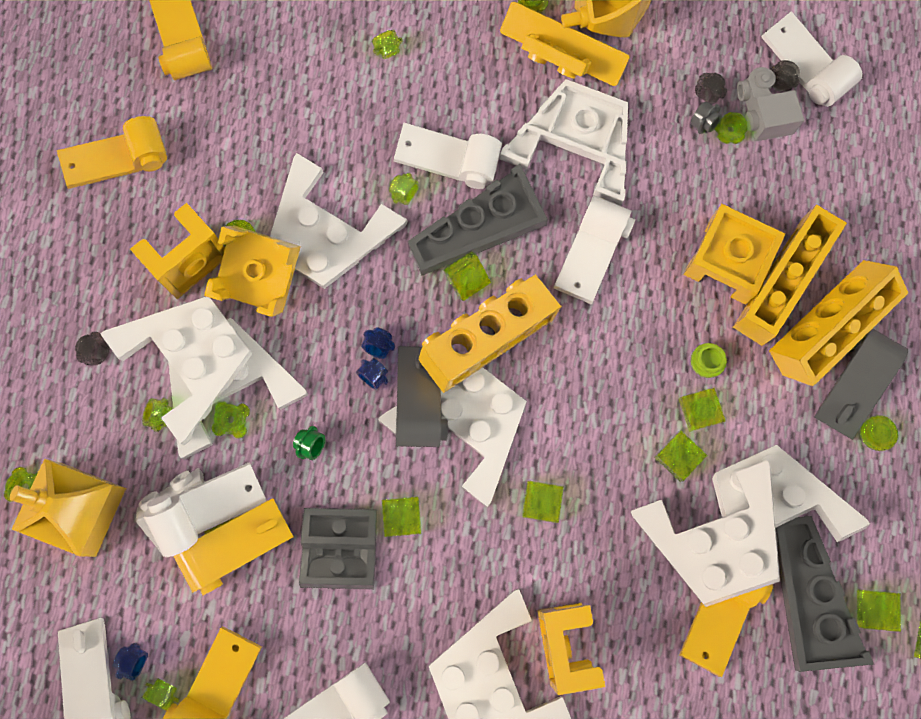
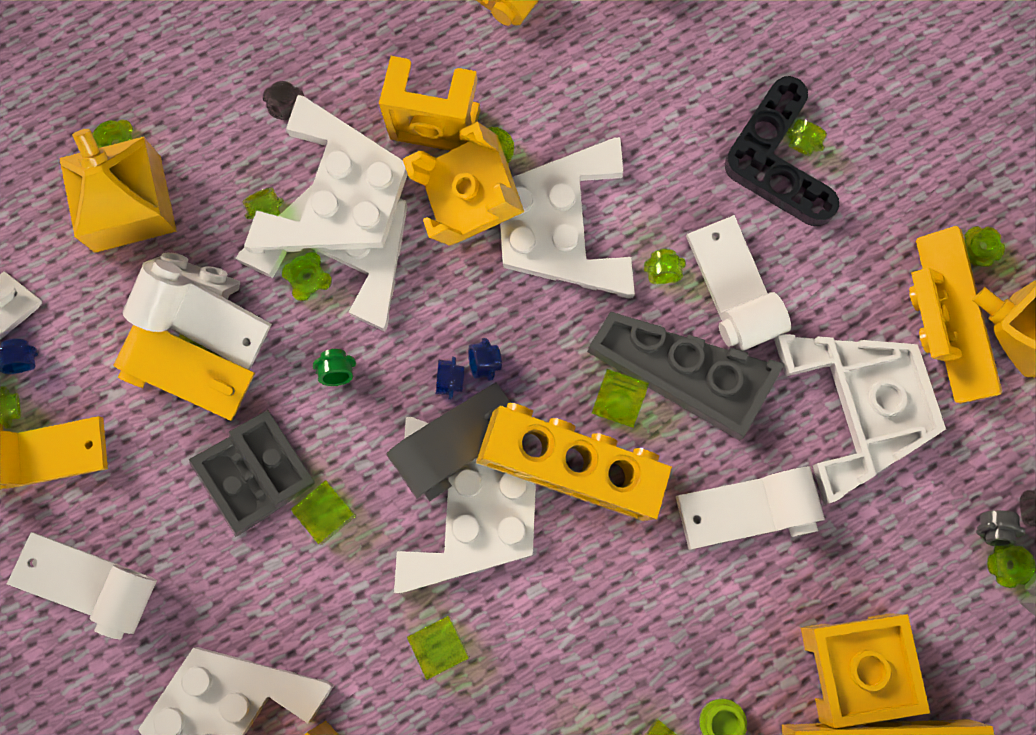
camera: 60 degrees right, 0 degrees up
(376, 77) = (762, 154): none -> black beam

